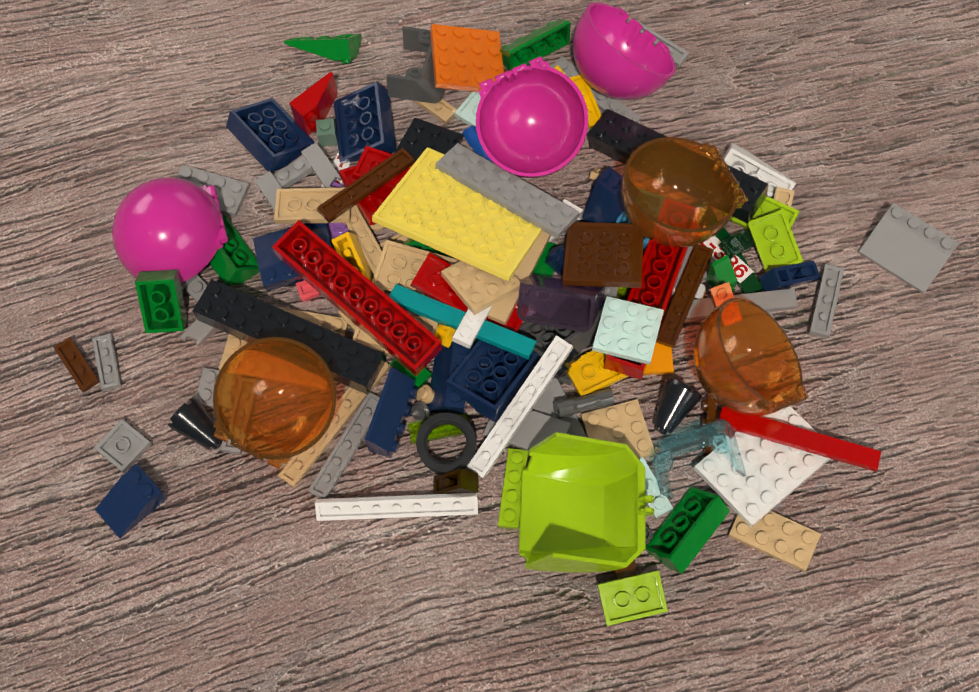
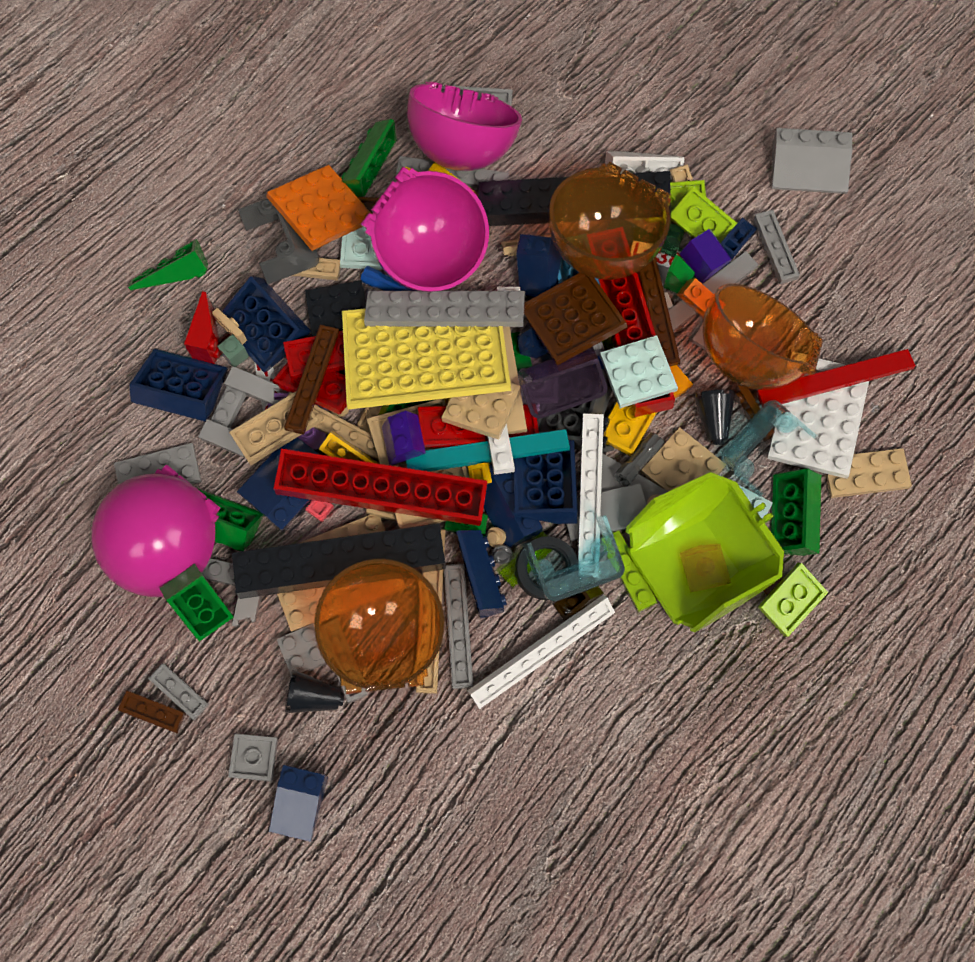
camera: 35 degrees left, 5 degrees up
(337, 111) = (229, 325): none -> tan plate
(401, 268) = (402, 437): none -> dark purple slope
(441, 459) = (602, 568): none -> clear light blue windscreen
(576, 524) = (705, 567): none -> clear yellow slope
(755, 271) = (705, 255): none -> dark purple slope

